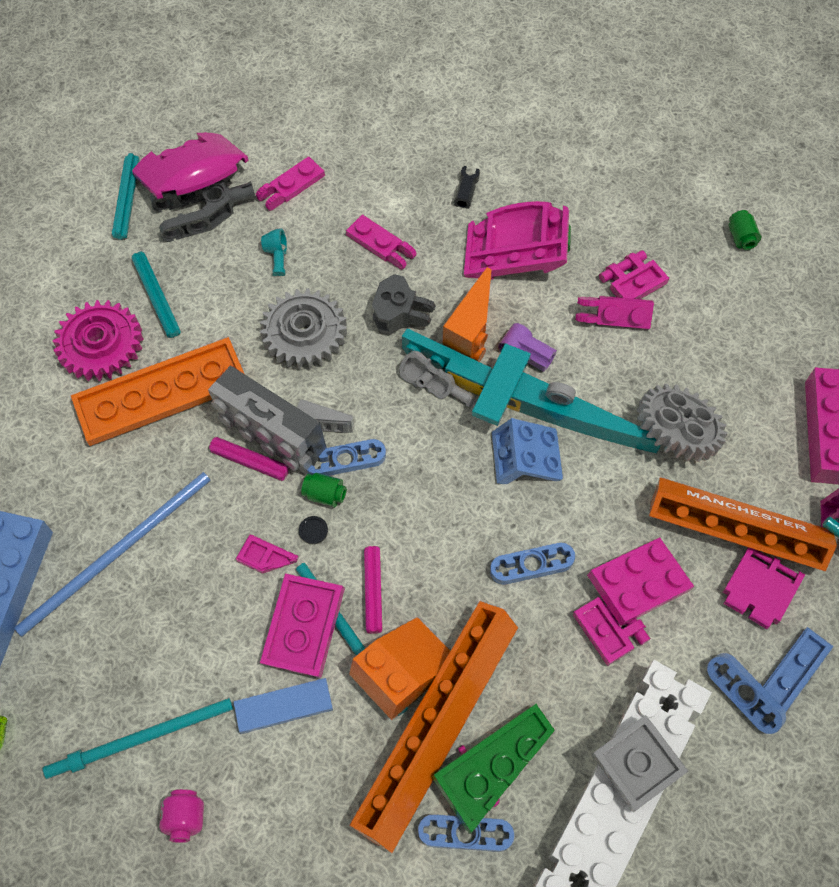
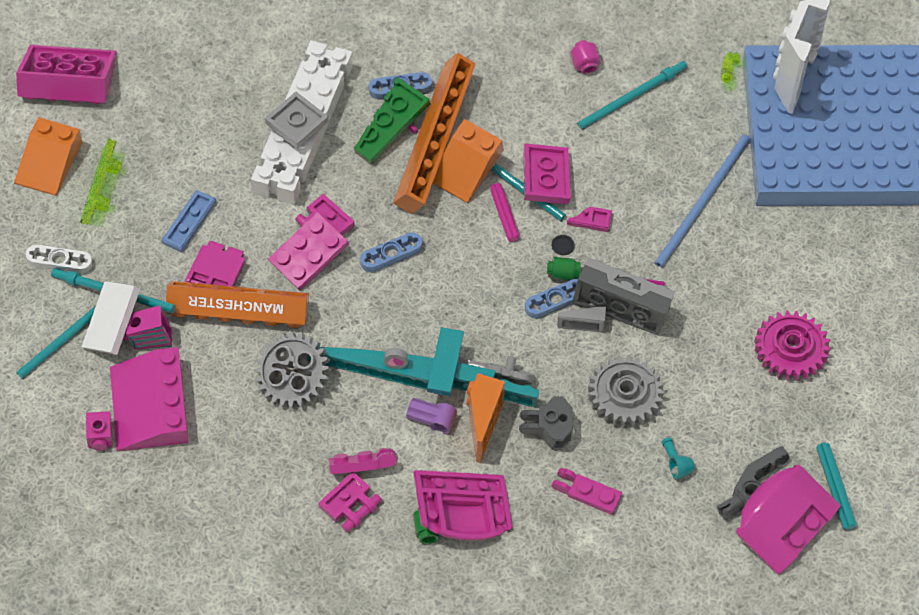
camera: 165 degrees right, 5 degrees down
(152, 392) = (722, 317): orange plate -> none
(156, 294) = (765, 400): teal axle -> none
(283, 706) = (544, 130): medium blue tile -> none
(290, 183) = (689, 535): dark pink hinge -> none
(466, 188) = (524, 564): black bar -> none
(526, 450) = (411, 326): medium blue bracket -> none
(744, 230) = (253, 570): green brick -> none
(769, 705) = (223, 196): medium blue beam -> none

